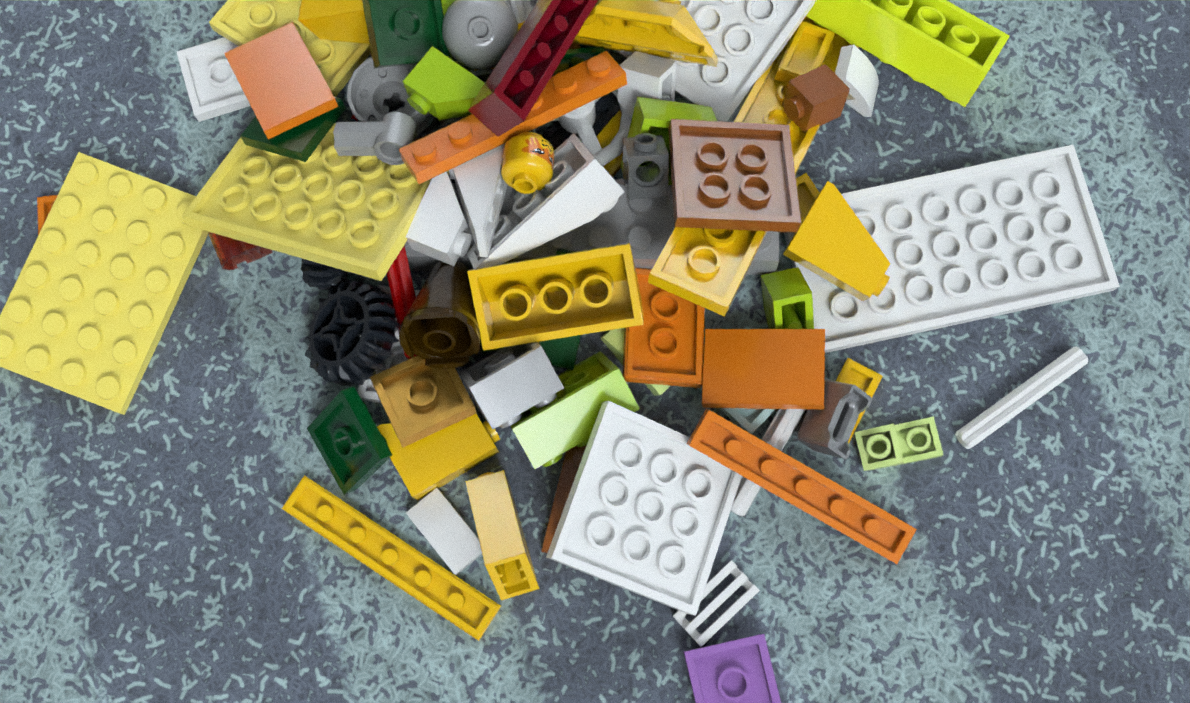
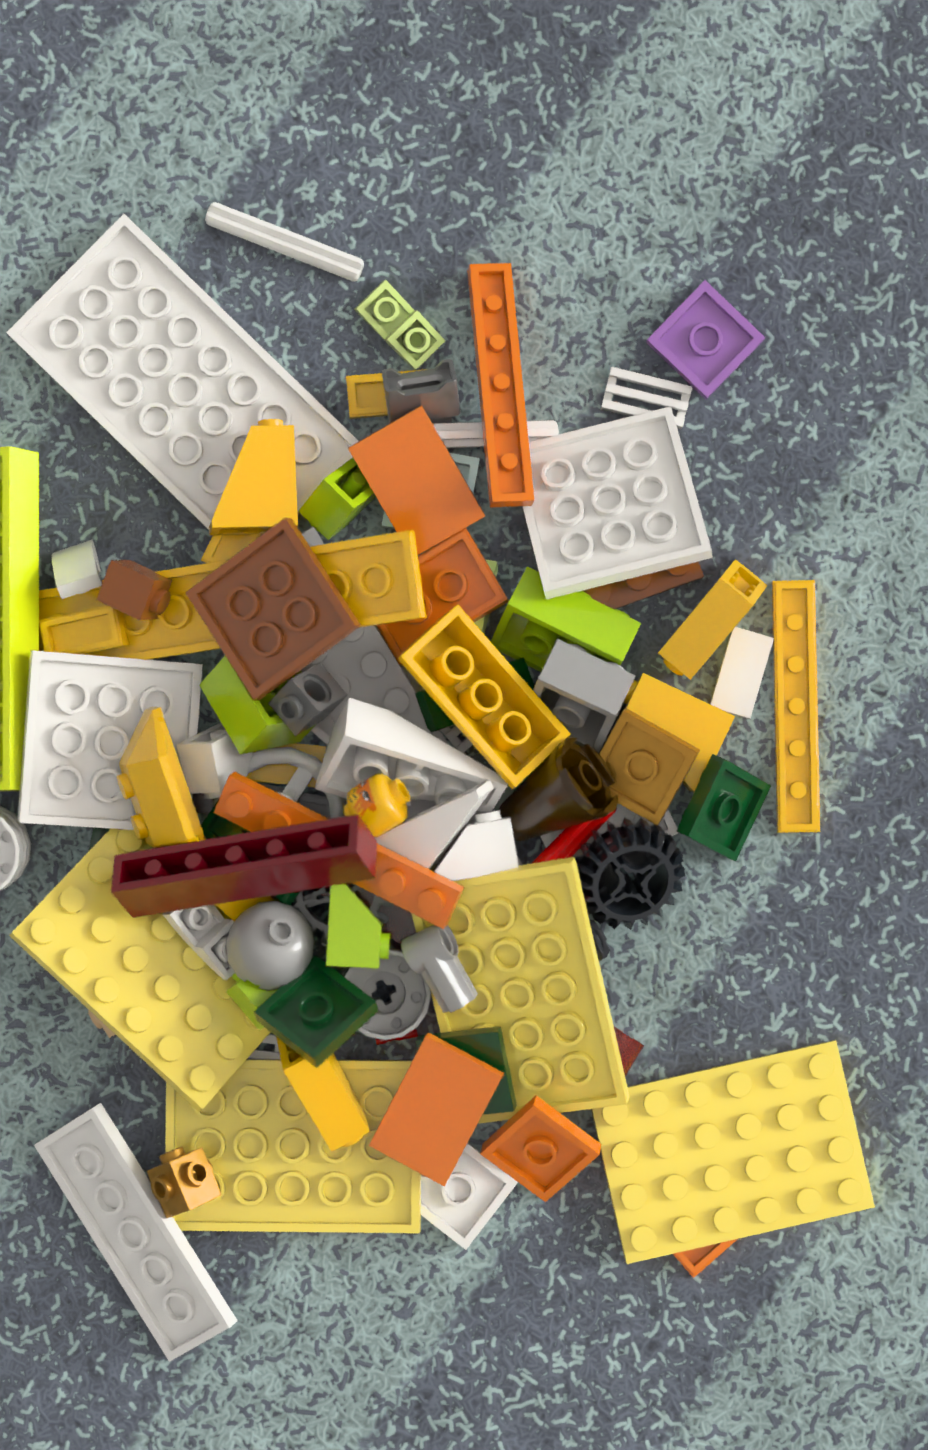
camera: 130 degrees left, 10 degrees up
(202, 143) = (540, 1148): none -> orange plate

